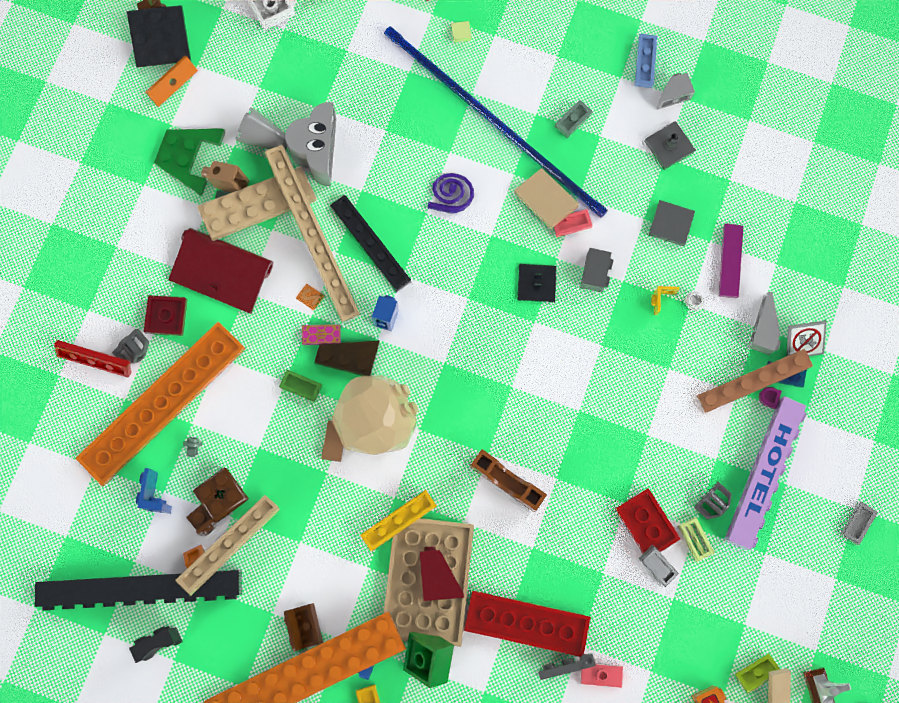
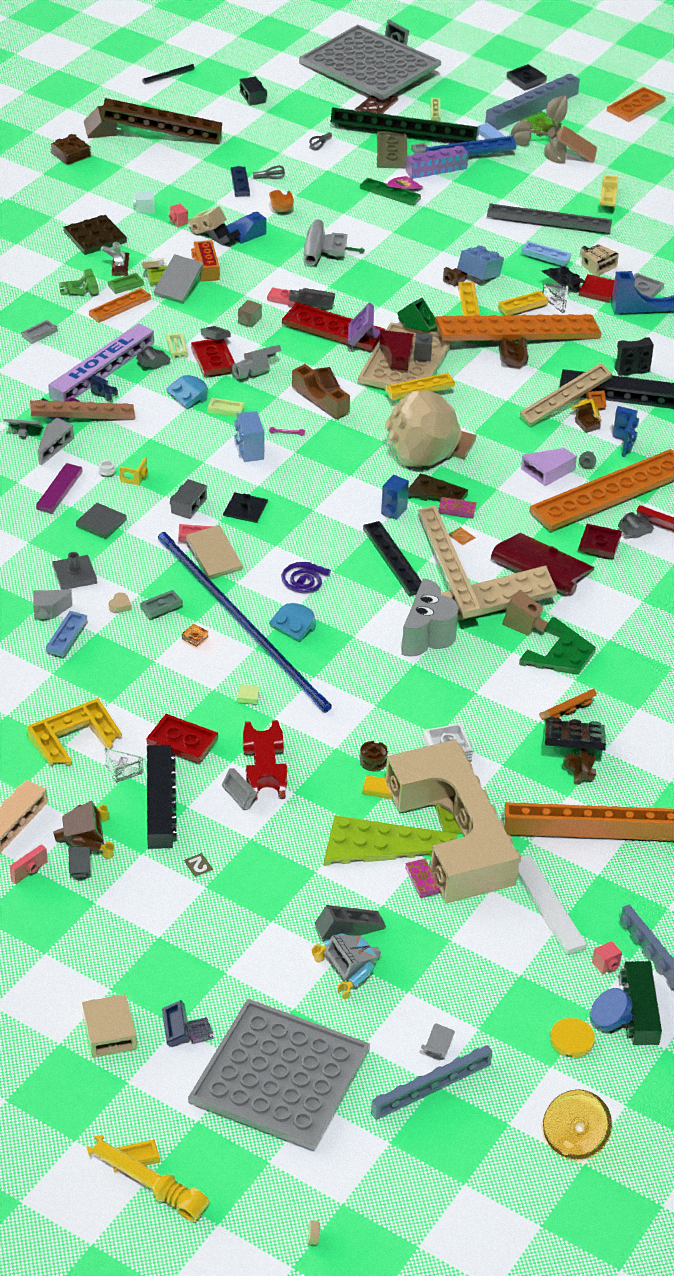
camera: 165 degrees left, 35 degrees down
(202, 538) = (586, 402): none -> yellow bracket
(218, 507) = (568, 429): reddish brown brick -> none
(232, 423) = (548, 465): none -> lavender slope
(260, 131) = (483, 642): light grey cone -> none
(300, 385) = (484, 481): bright green tile -> none
(408, 587) = (423, 346): none -> dark grey brick
(443, 128) = (294, 621): none -> dark azure slope
(488, 605) = (362, 324): none -> medium lavender tile
(509, 520) = (327, 378): none -> reddish brown tile
(513, 419) = (301, 432): none -> dark pink hinge
(530, 87) = (194, 635): none -> clear orange plate
(562, 373) = (249, 436): none -> medium blue brick
(595, 520) = (255, 362): none -> light grey plate
(605, 439) = (225, 407): none -> yellowish green tile
(612, 115) = (119, 603): none -> tan tile
(632, 618) = (249, 313): none -> dark tan brick
(654, 452) = (188, 390): none -> dark azure slope
(737, 663) = (178, 278): none -> light grey tile
(750, 429) = (100, 387): none -> dark blue plate
(788, 602) = (119, 305): none -> orange tile
(798, 650) = (125, 283): none -> bright green tile
(836, 626) = (90, 283): none -> bright green piece

